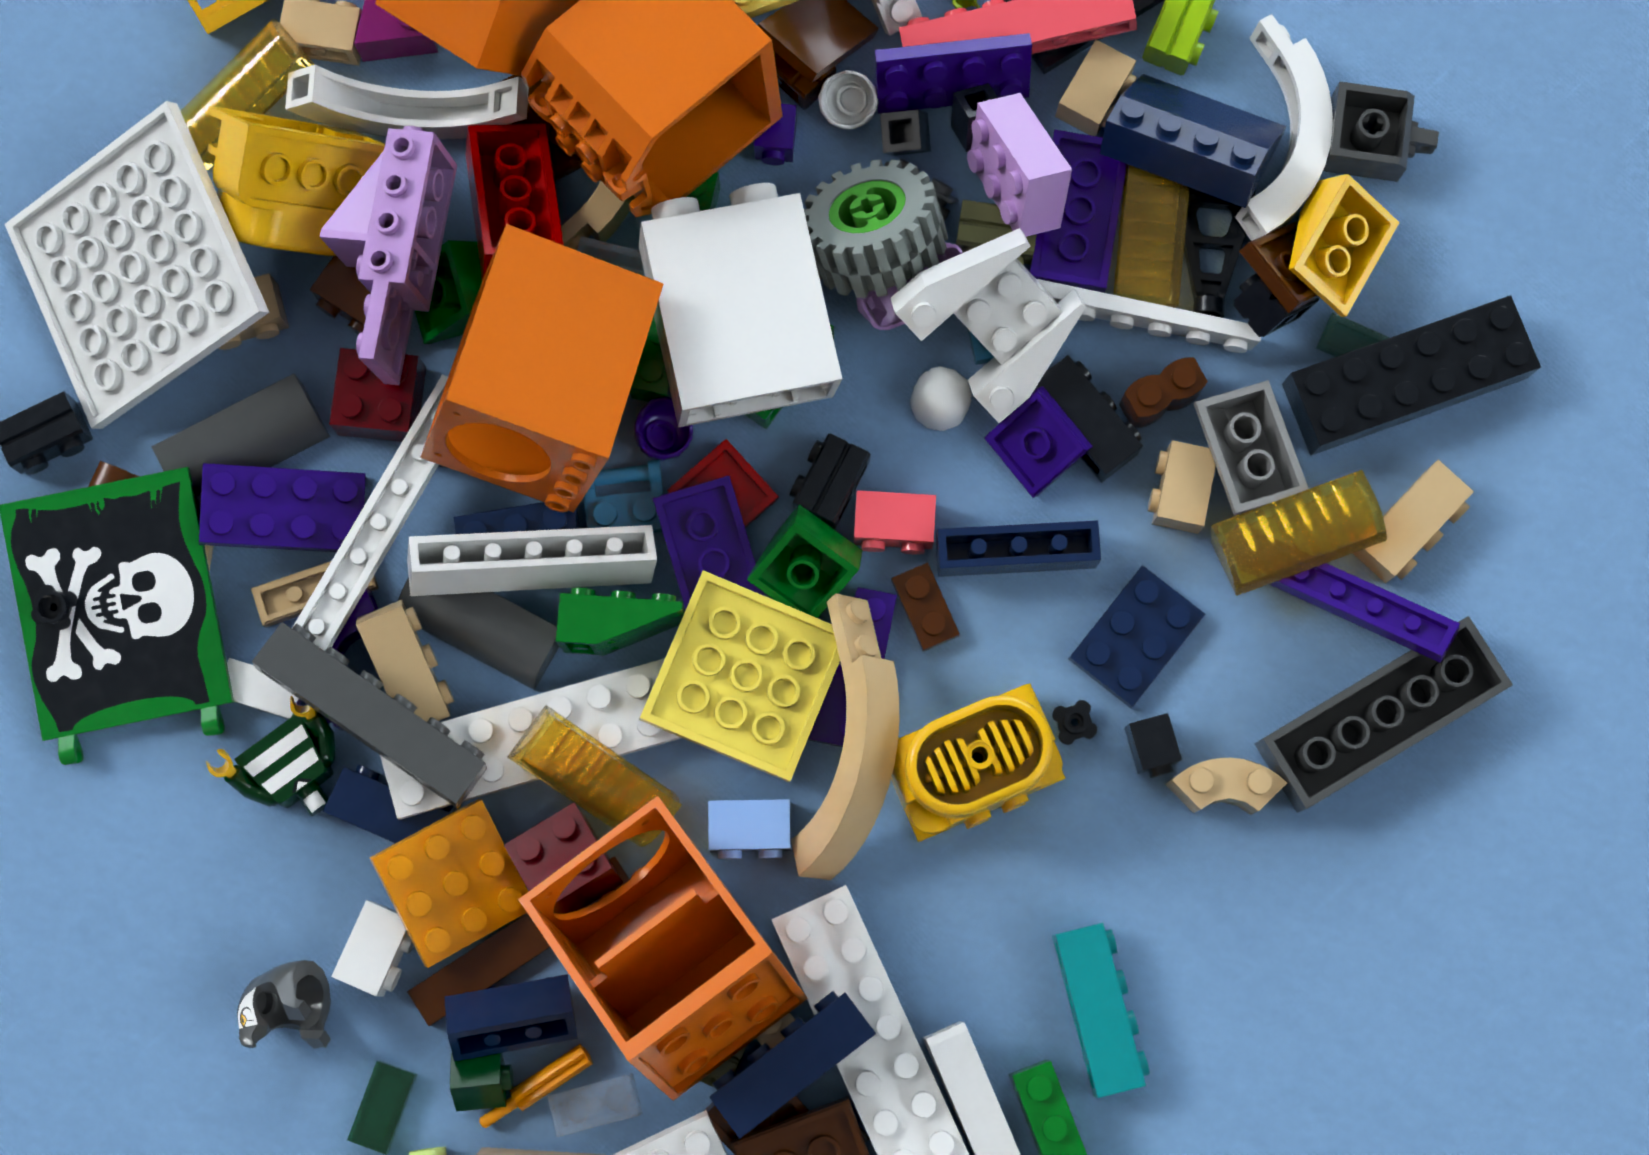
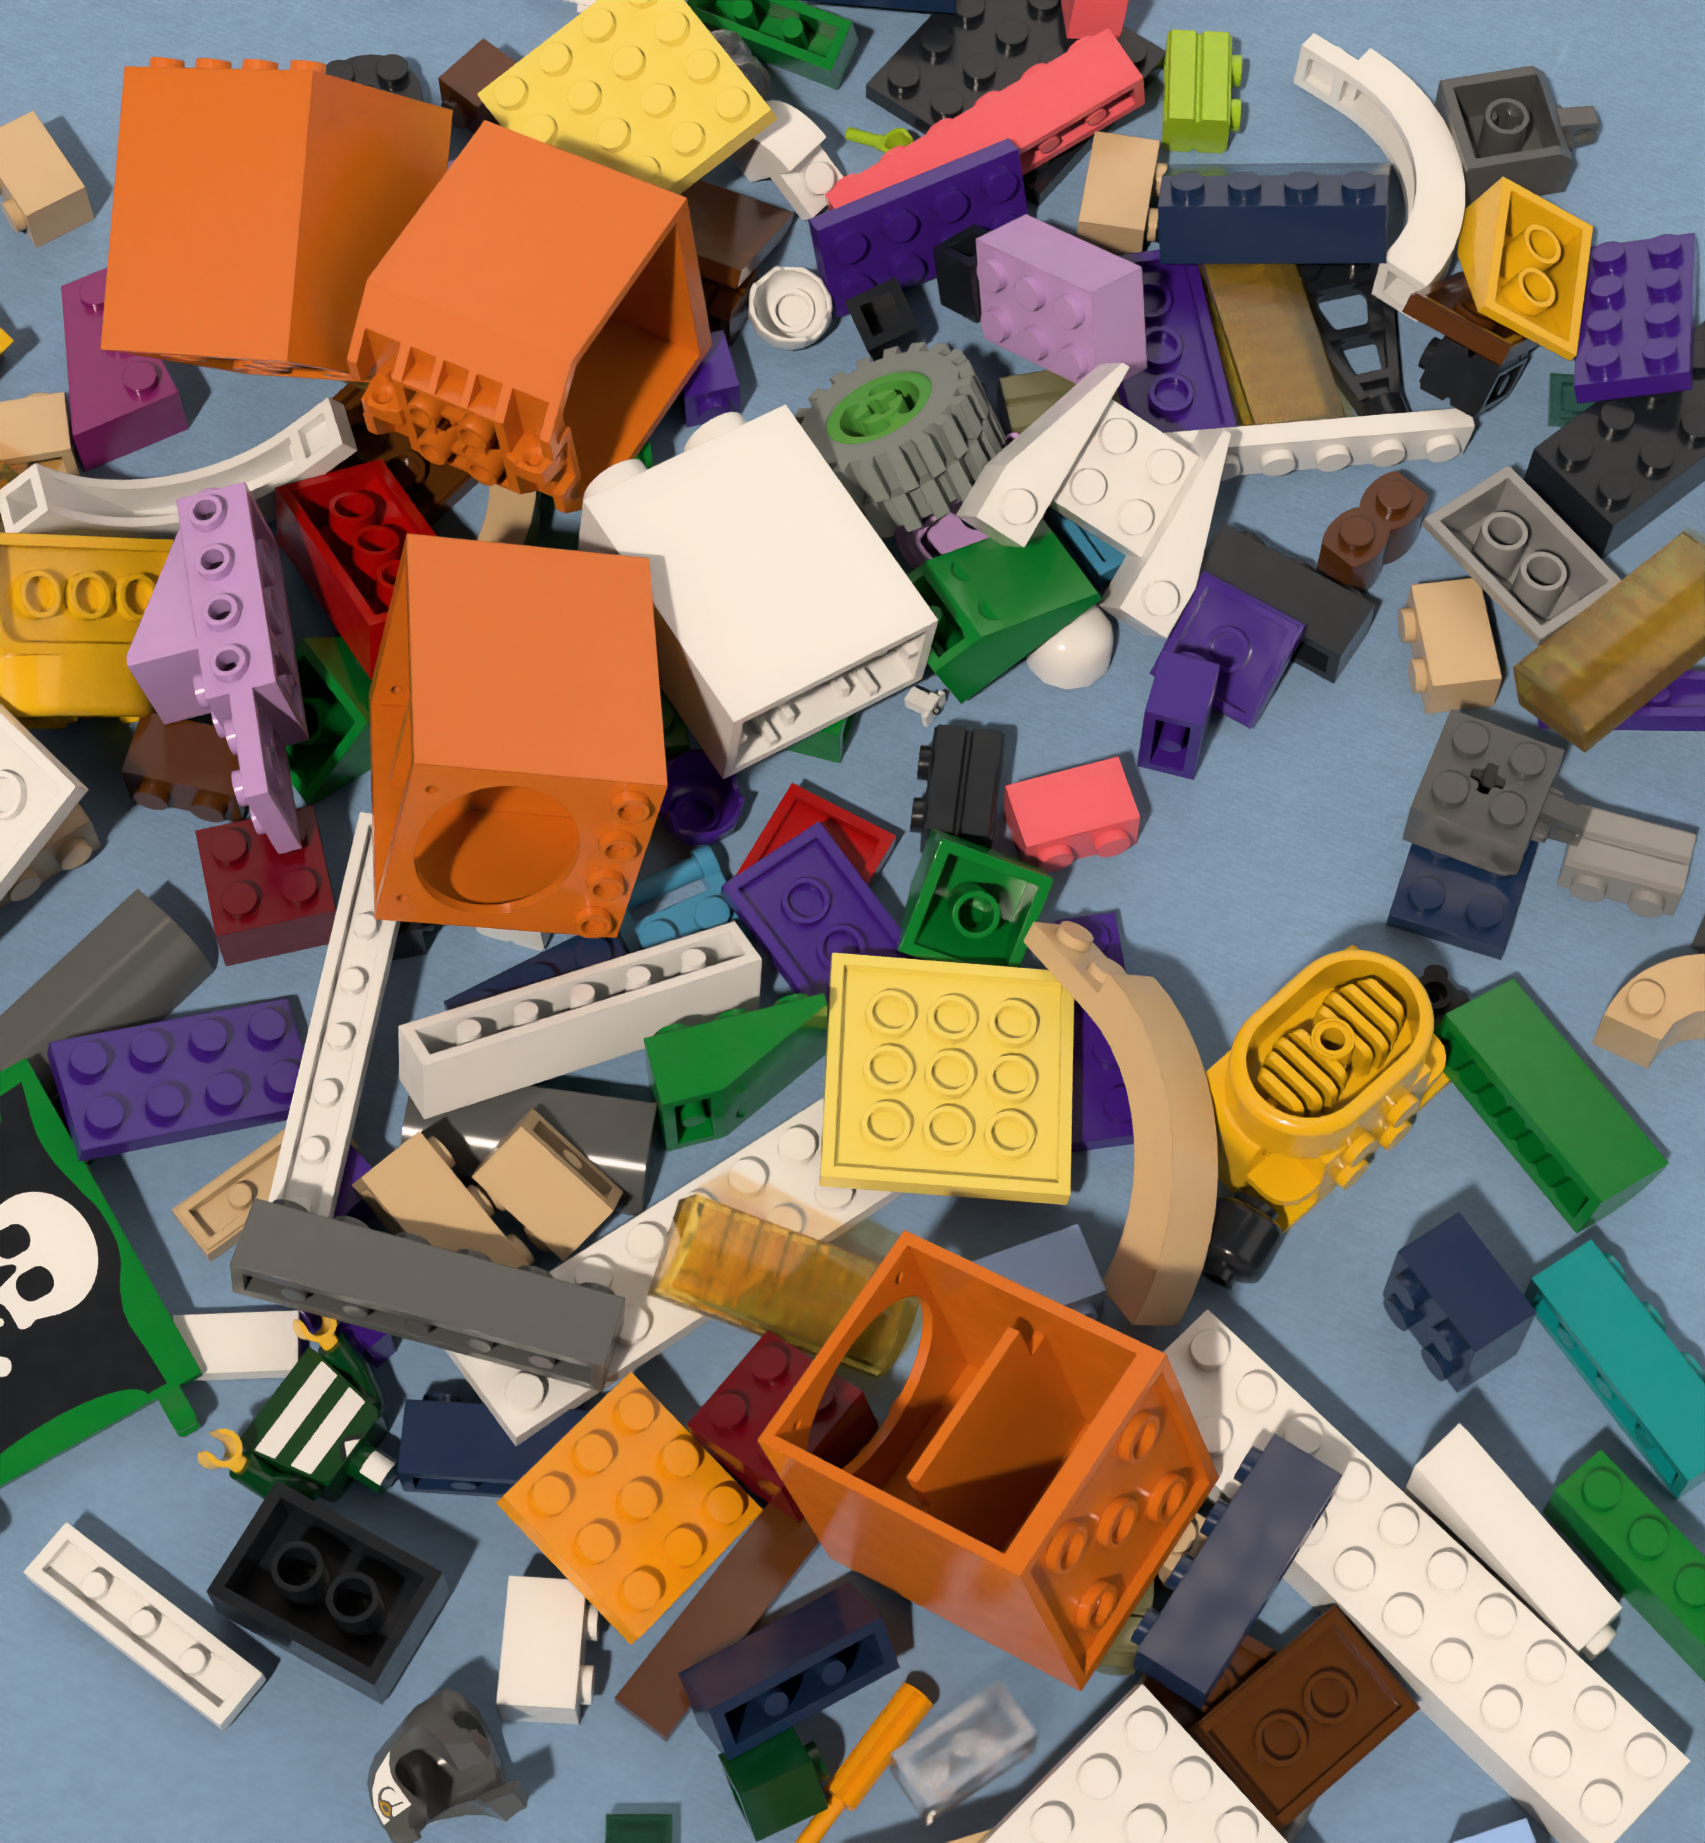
camera: 20 degrees left, 15 degrees down
(148, 848) = (145, 1626): none -> white plate
(258, 870) = (329, 1592): none -> black brick
(475, 659) = (546, 1186): none -> tan brick
(834, 409) = (925, 704): none -> white piece
(888, 841) = (1241, 1240): none -> black head
(891, 366) = (998, 605): none -> green slope
(925, 607) = (1159, 919): reddish brown plate -> none
(986, 478) = (1178, 714): none -> dark purple brick
(1001, 934) = (1457, 1303): none -> dark blue brick
(1018, 548) = (1258, 792): dark blue brick -> none
(1115, 819) = (1546, 1105): none -> green brick
(1153, 745) = (1559, 984): black brick -> none
(1175, 623) = (1491, 797): none -> dark grey hinge
(1235, 675) = (1628, 863): none -> light grey brick
(1400, 301) = (1638, 319): none -> dark purple plate

